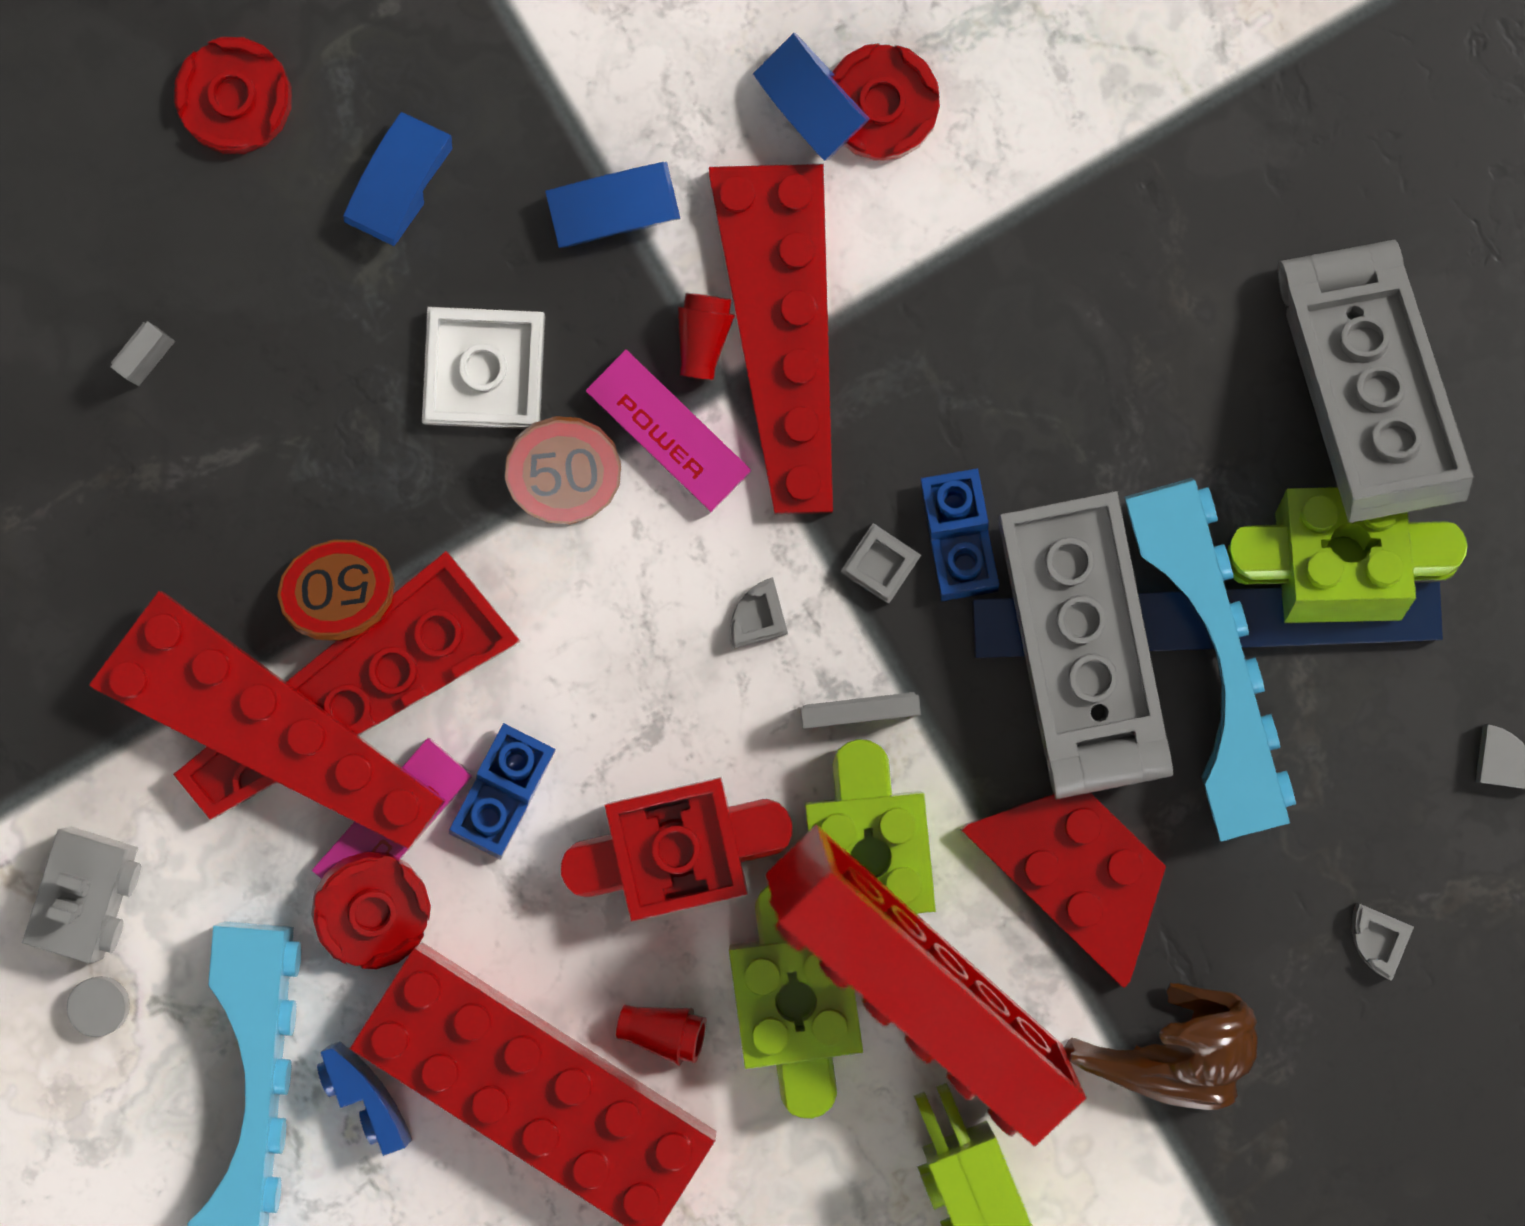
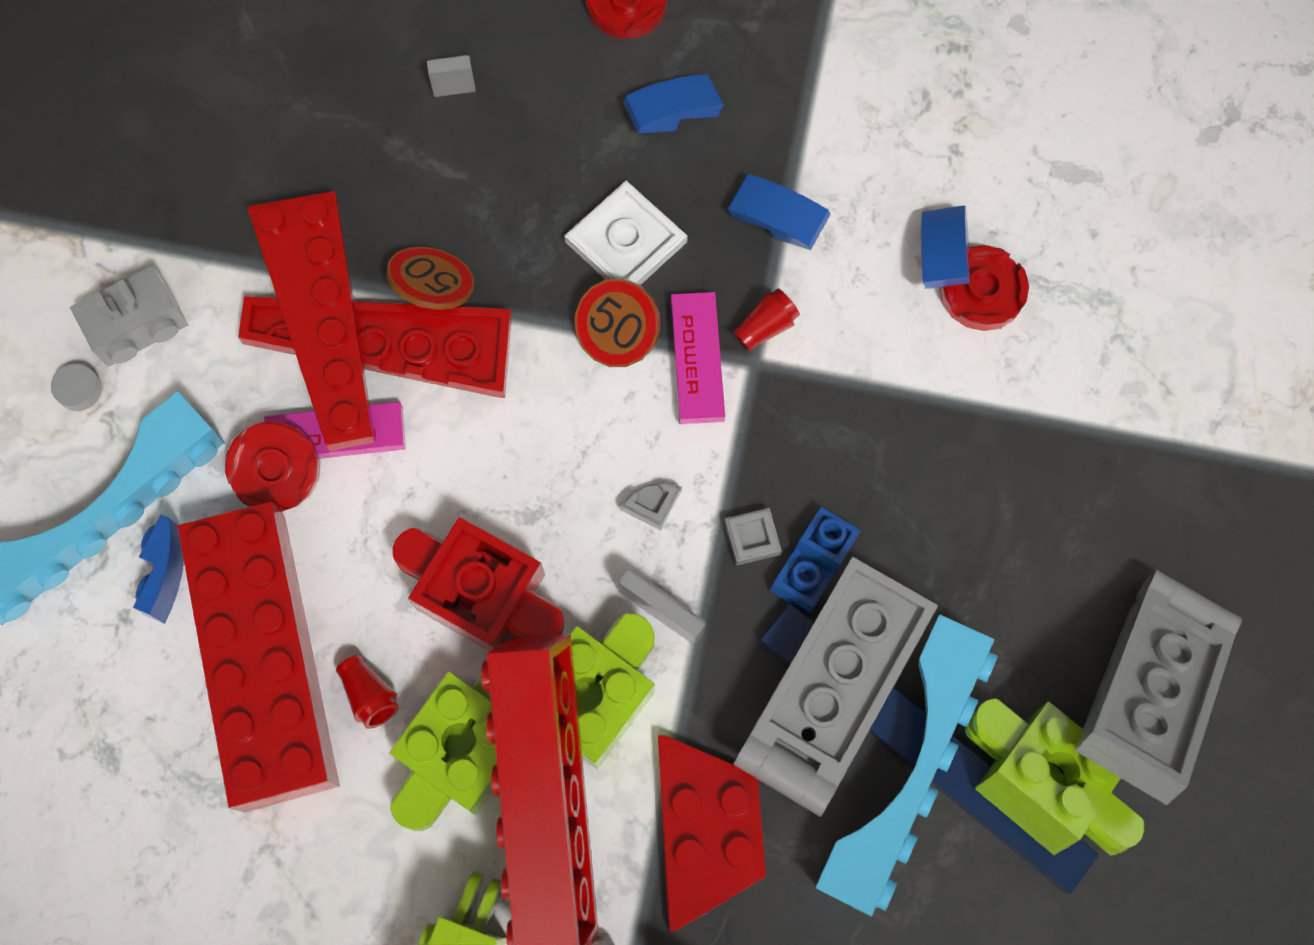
camera: 40 degrees right, 15 degrees down
(502, 791) = (413, 471): blue slope -> none
(778, 283) = (833, 335): red wing -> none

